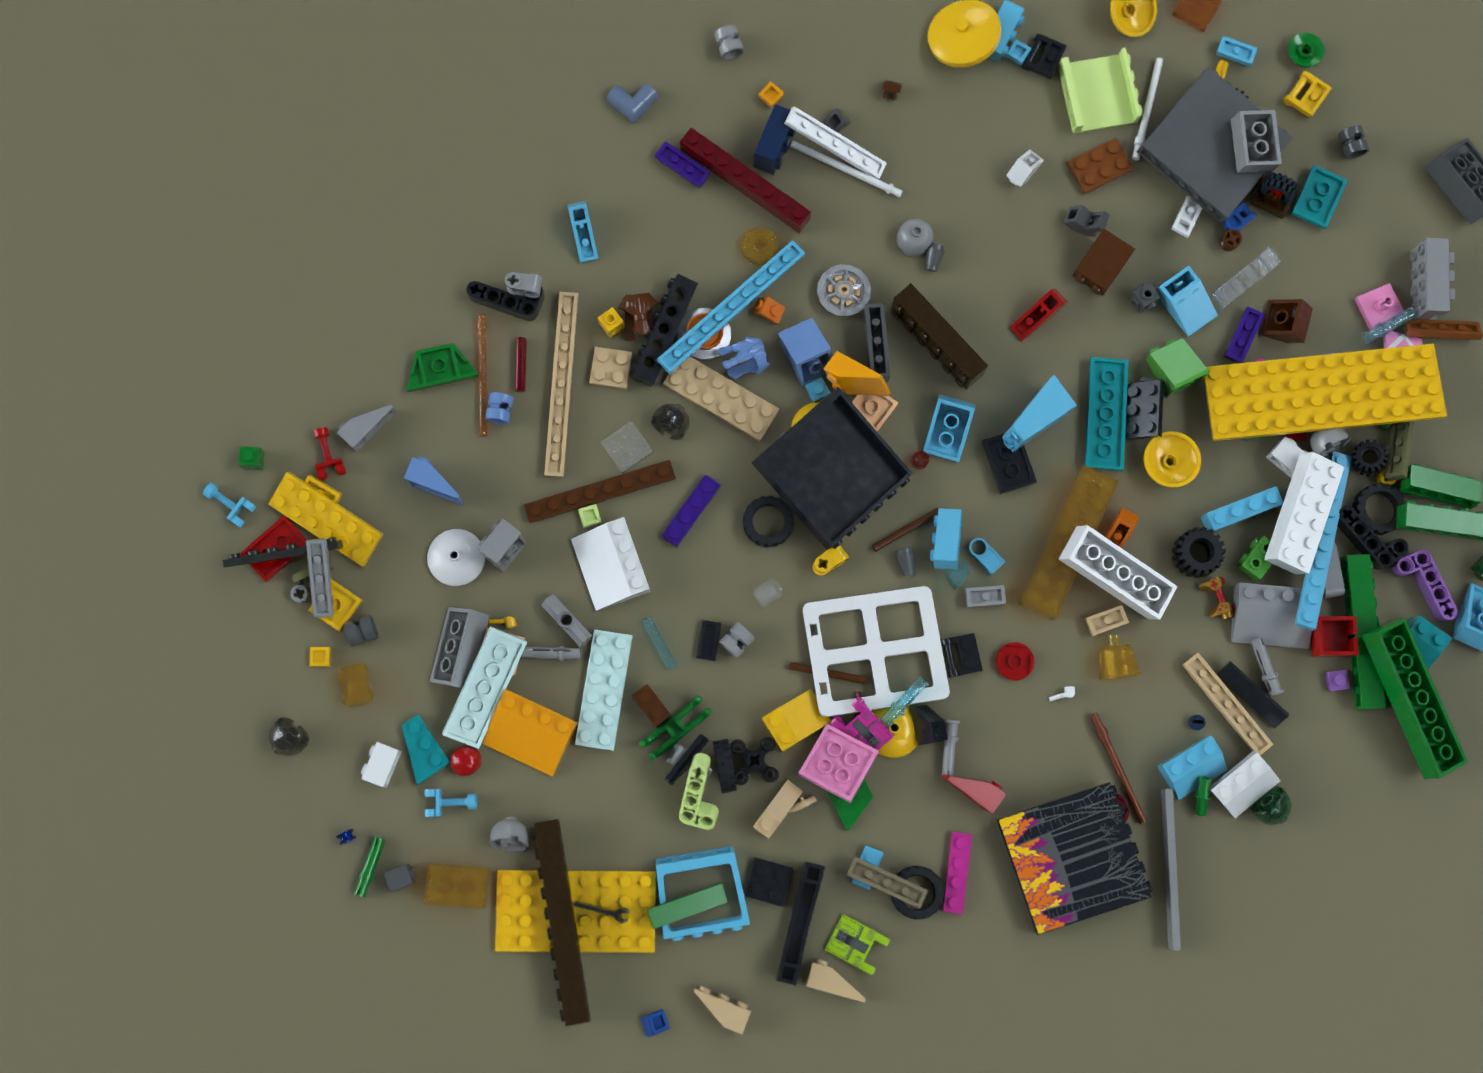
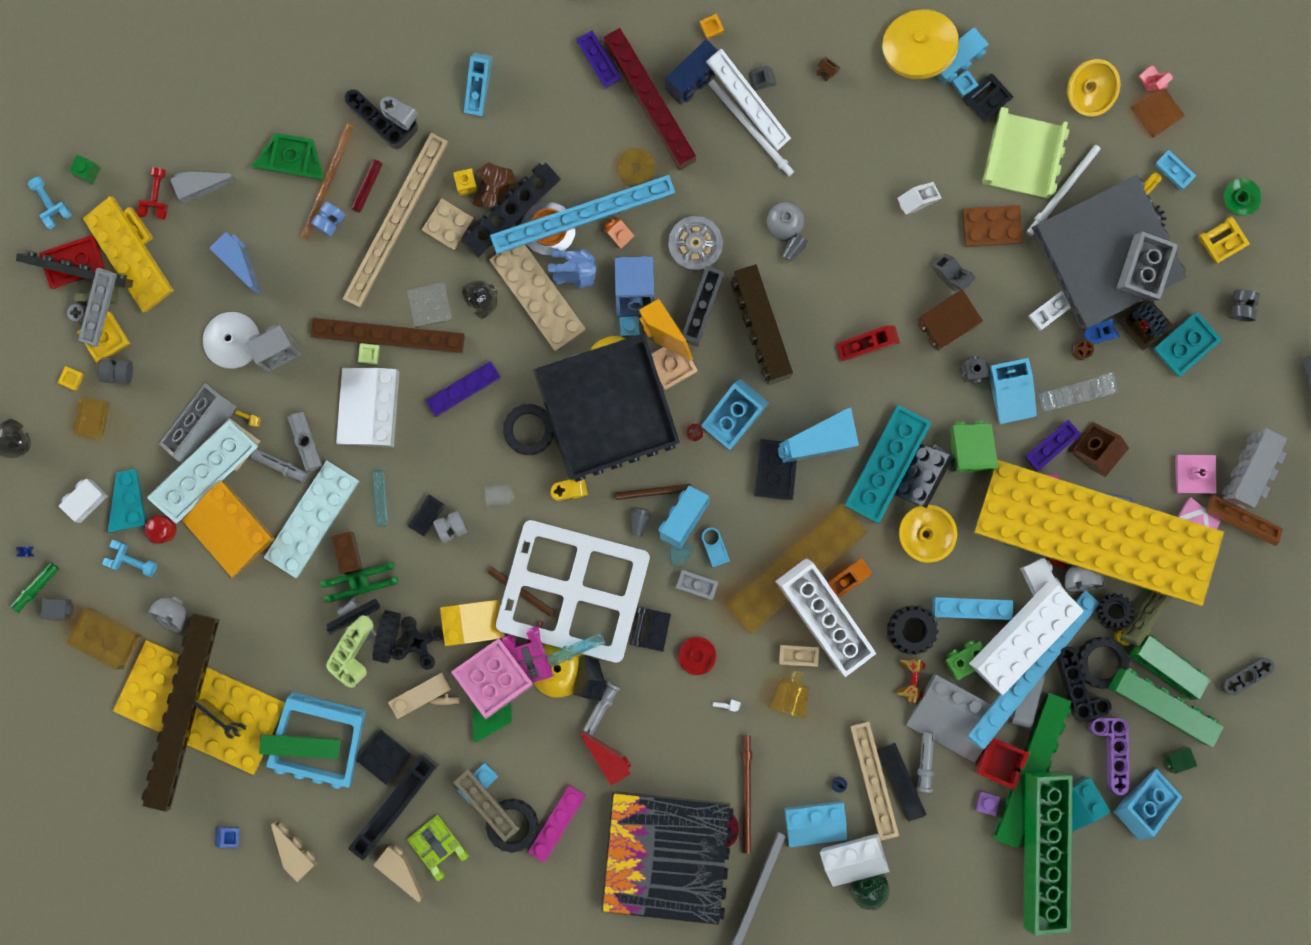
camera: 25 degrees right, 5 degrees up
(1203, 795) = (811, 853): green axle -> none
(1382, 329) = (1186, 496): clear light blue pin -> none

